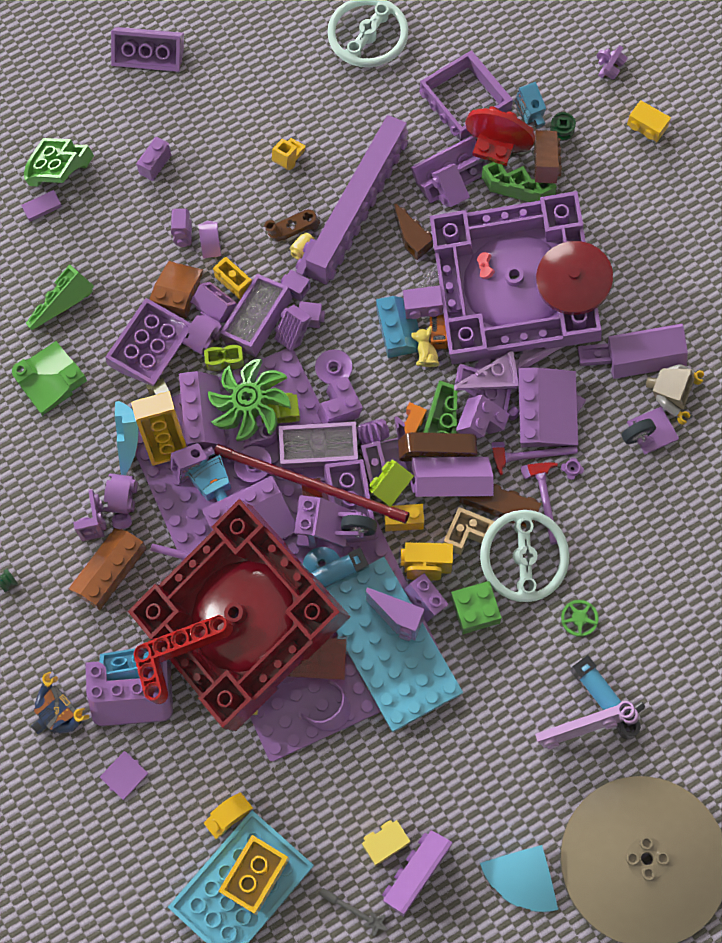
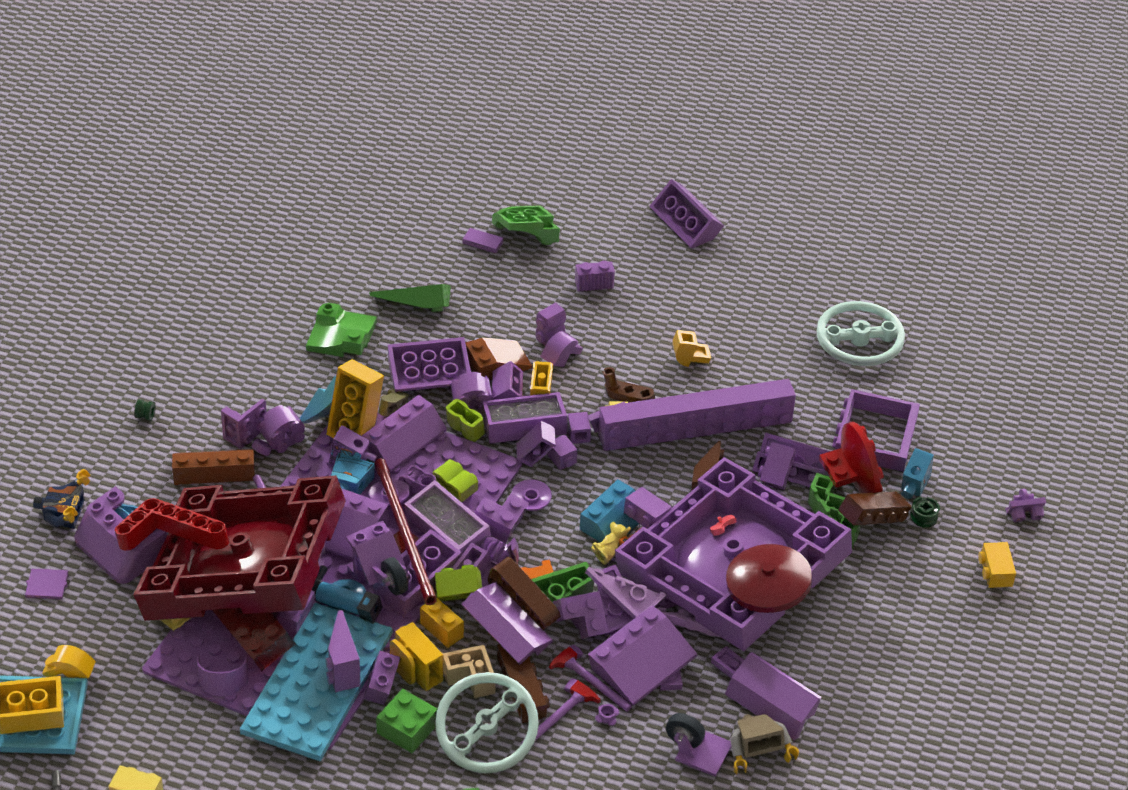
camera: 45 degrees right, 25 degrees down
(238, 404) = (440, 449): bright green piece -> none

